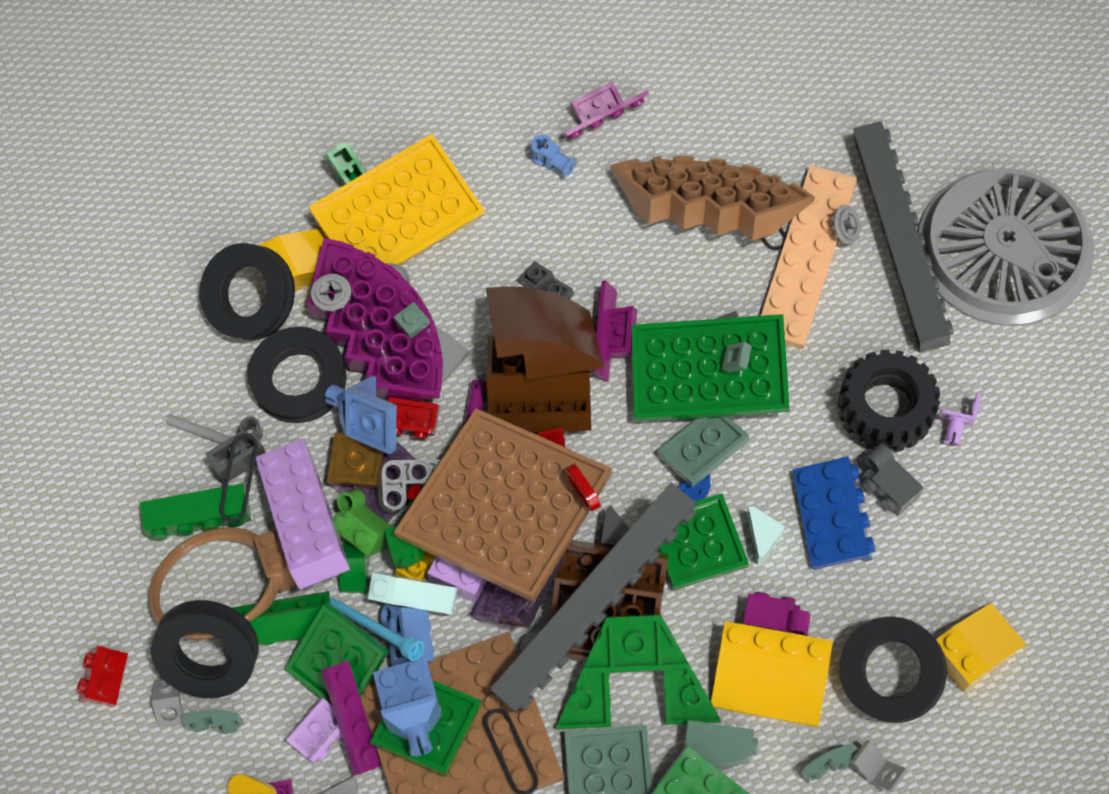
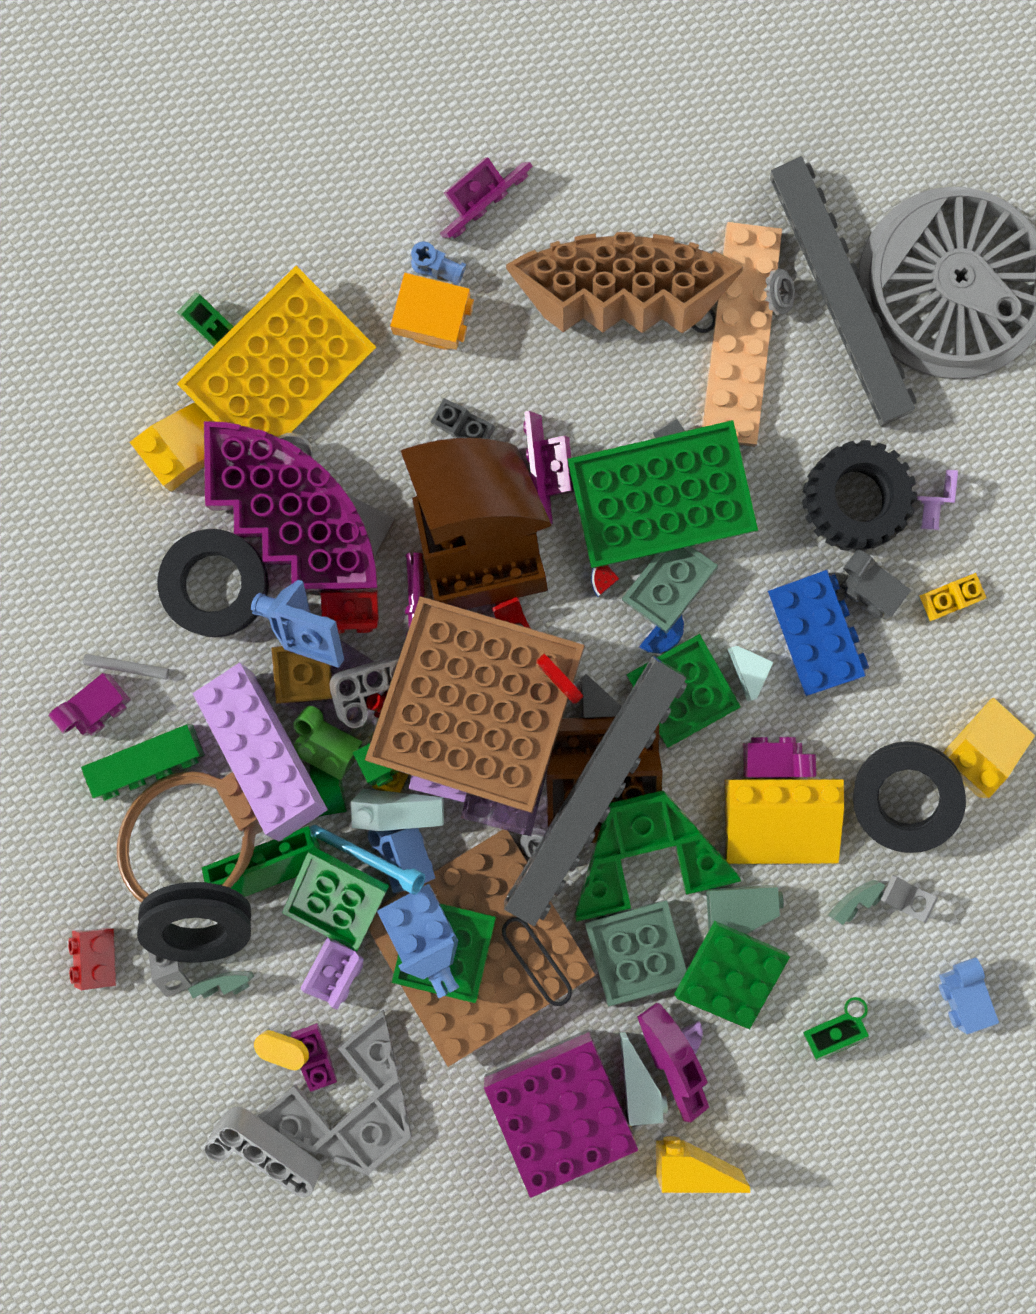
camera: 20 degrees left, 20 degrees up
(162, 456) = (91, 706): none -> magenta hinge
(216, 283) = (104, 520): black tyre -> none
(243, 451) = (171, 689): dark grey hinge -> none
(248, 482) = (168, 722): black piece -> none
(321, 289) = (216, 485): light grey gear -> none
(351, 718) = (364, 957): magenta plate -> none
(412, 320) = (326, 504): sand green plate -> none
(538, 190) = (431, 312): none -> light orange brick
(644, 434) = (602, 579): none -> red tile
(737, 357) = (692, 483): sand green plate -> none
(964, 506) = (953, 596): none -> yellow slope

